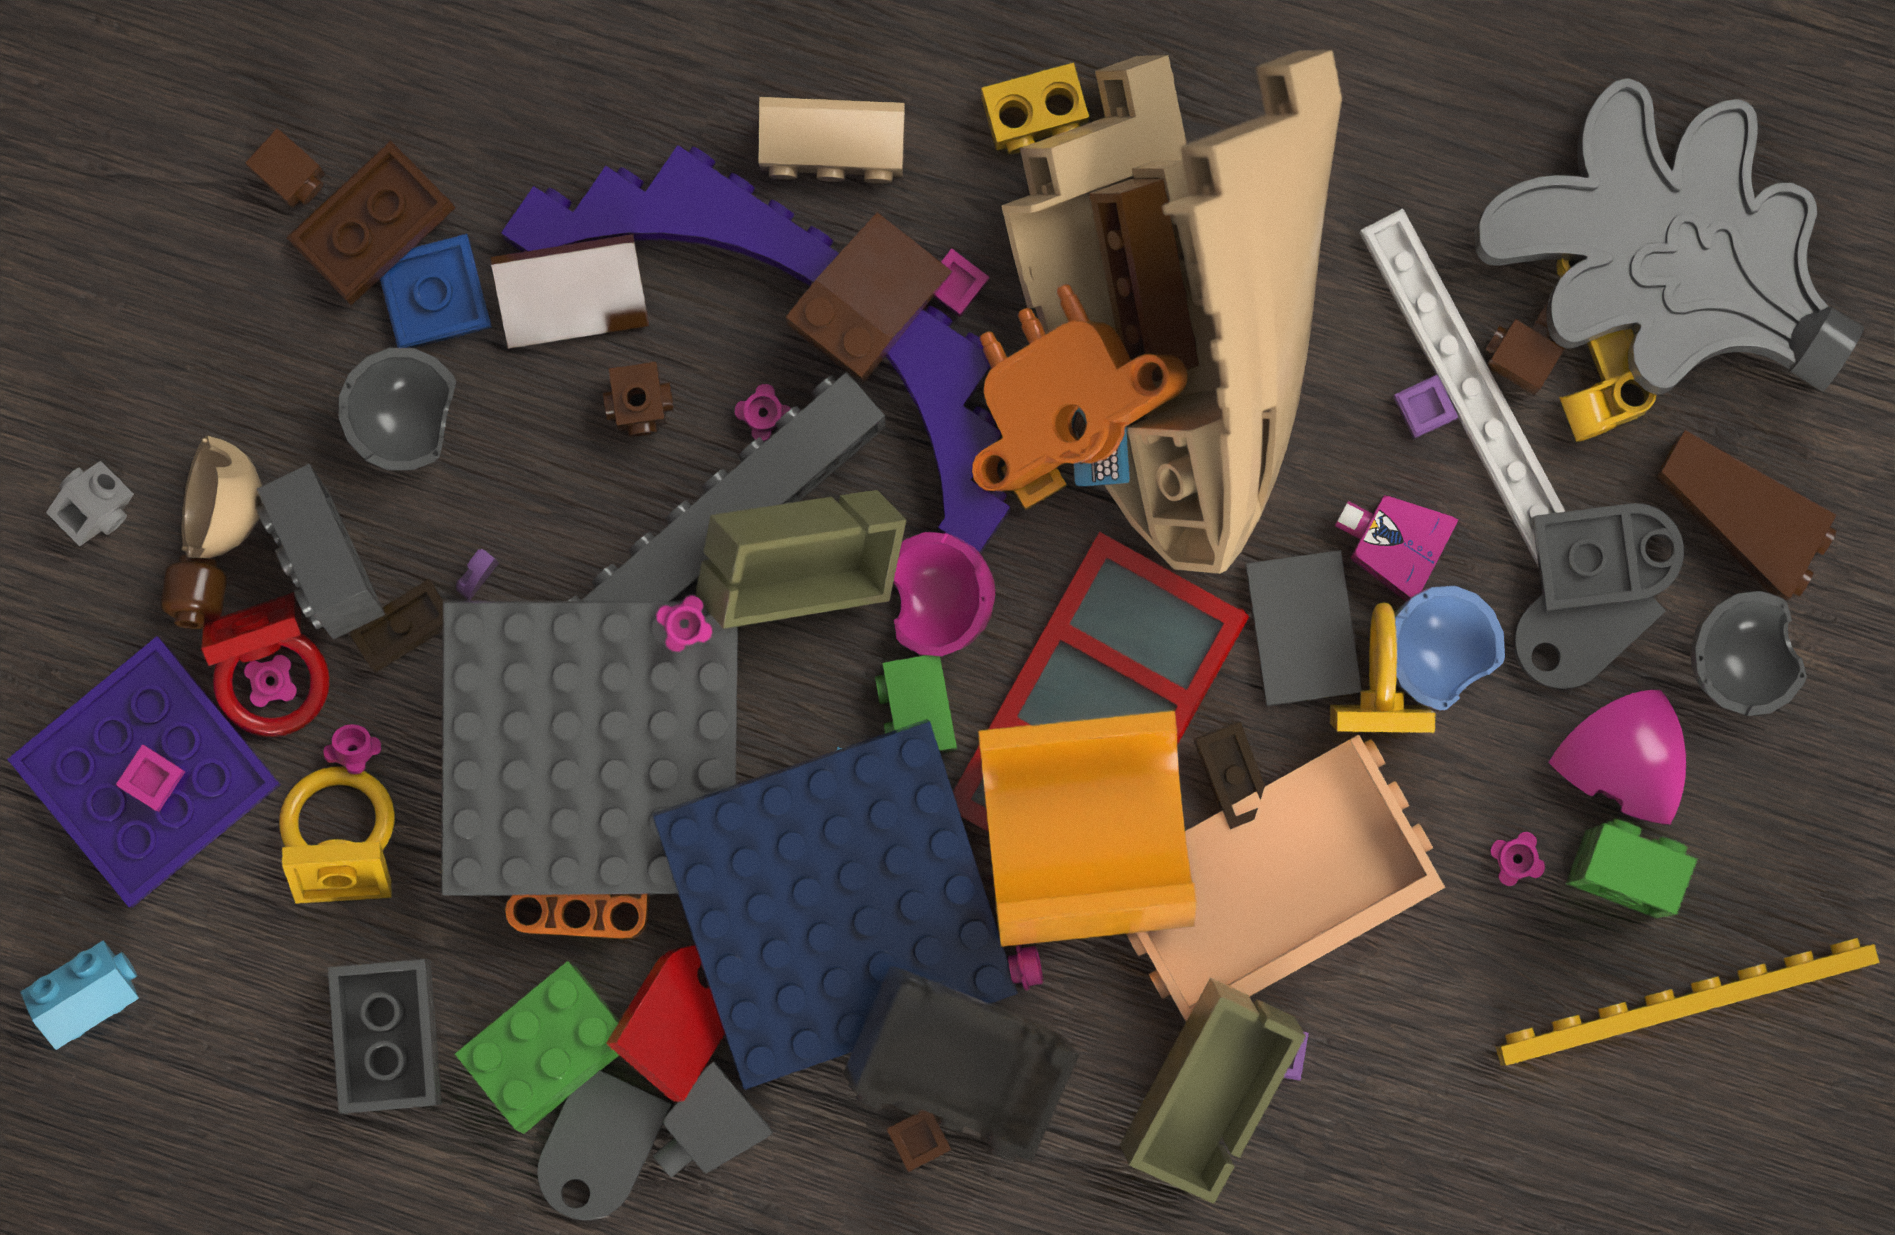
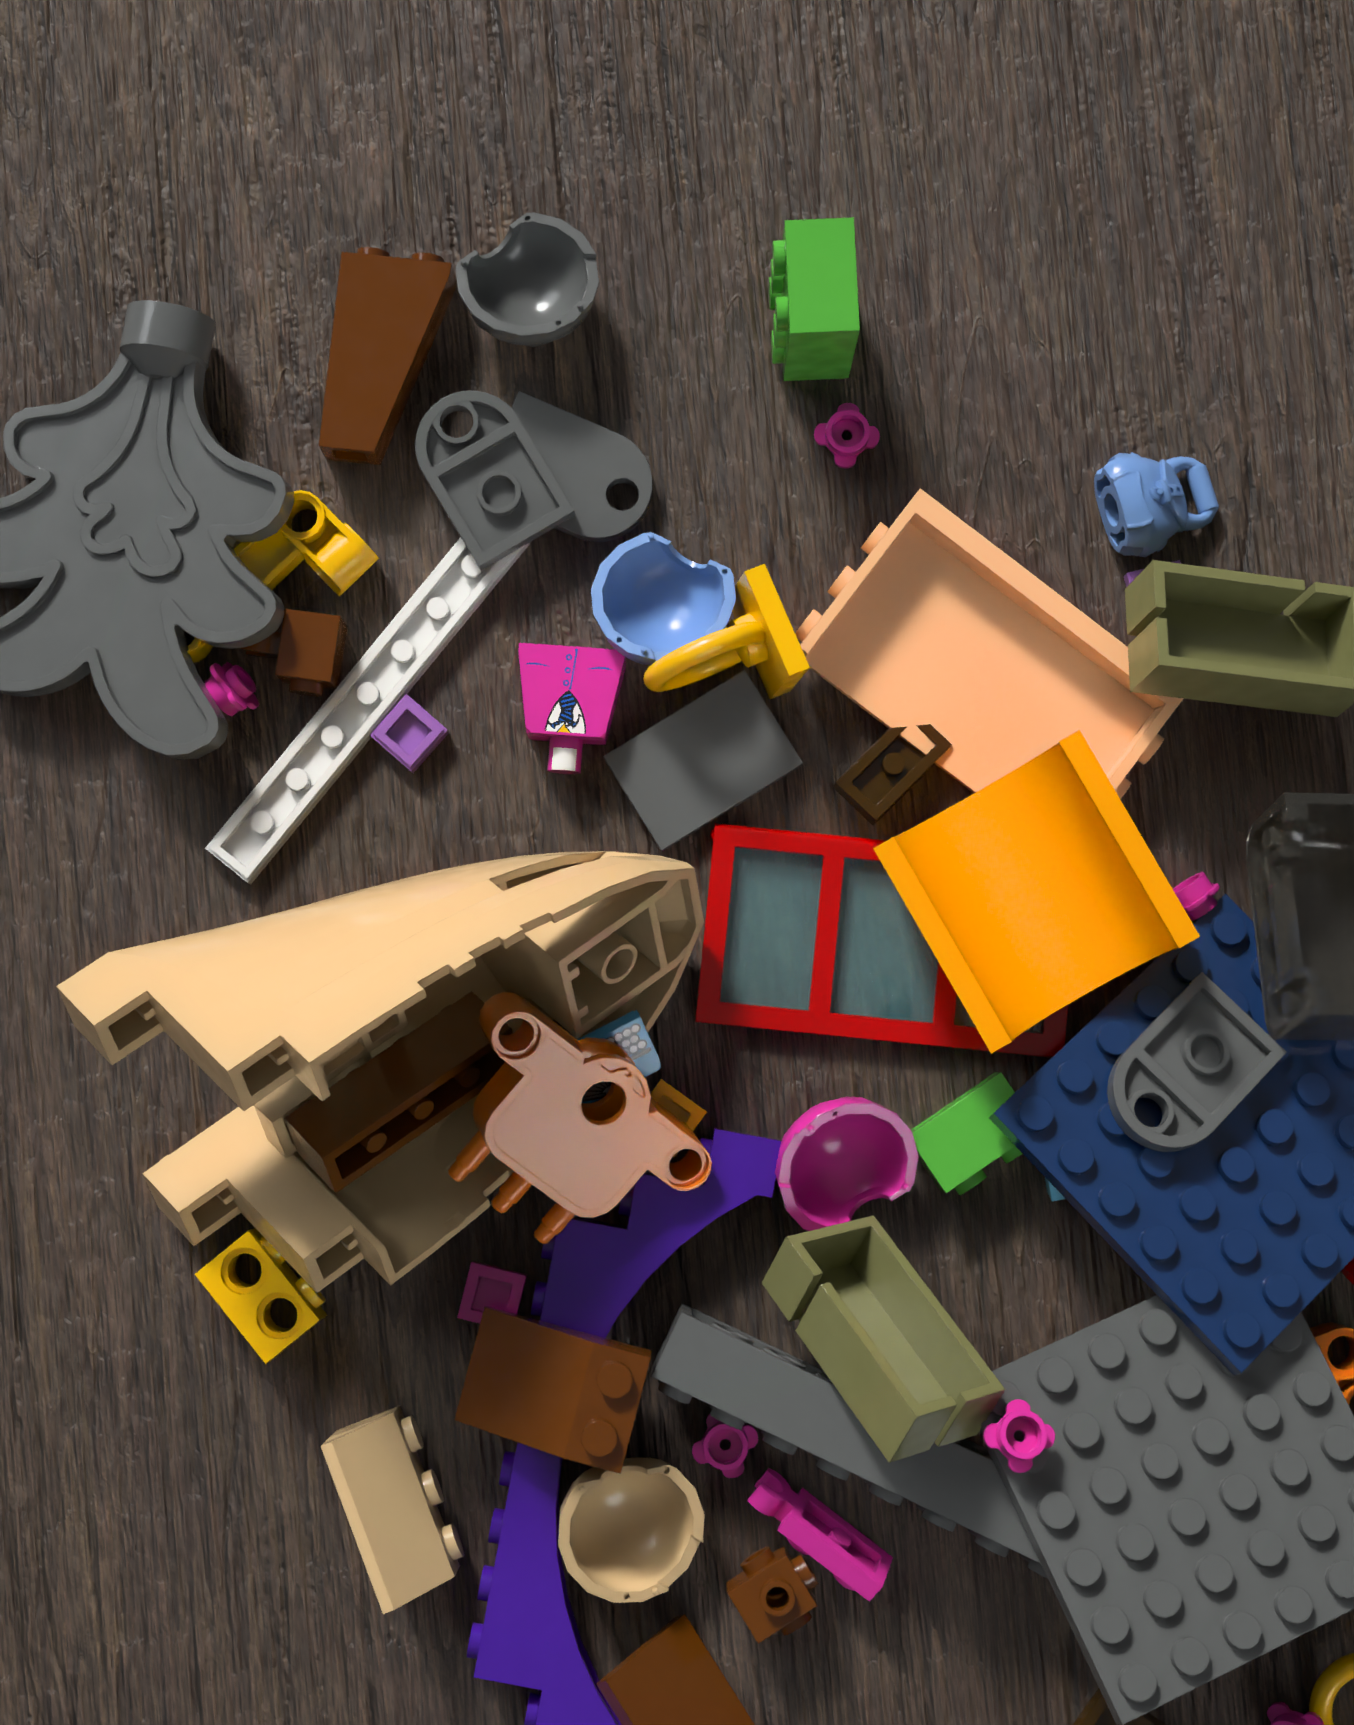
camera: 110 degrees left, 0 degrees up
(479, 569) = (1036, 1683): medium lavender tile -> none
(663, 455) = (823, 1535): none -> dark pink plate
(735, 309) = (630, 1530): none -> tan cylinder
(898, 892) = (1193, 1064): none -> dark grey tile
(1357, 1074) = (1146, 503): none -> medium blue piece
(1521, 281) = (231, 688): none -> dark pink plate
(1630, 755) = (691, 361): dark pink brick -> none
(1706, 995) = (933, 213): yellow plate -> none

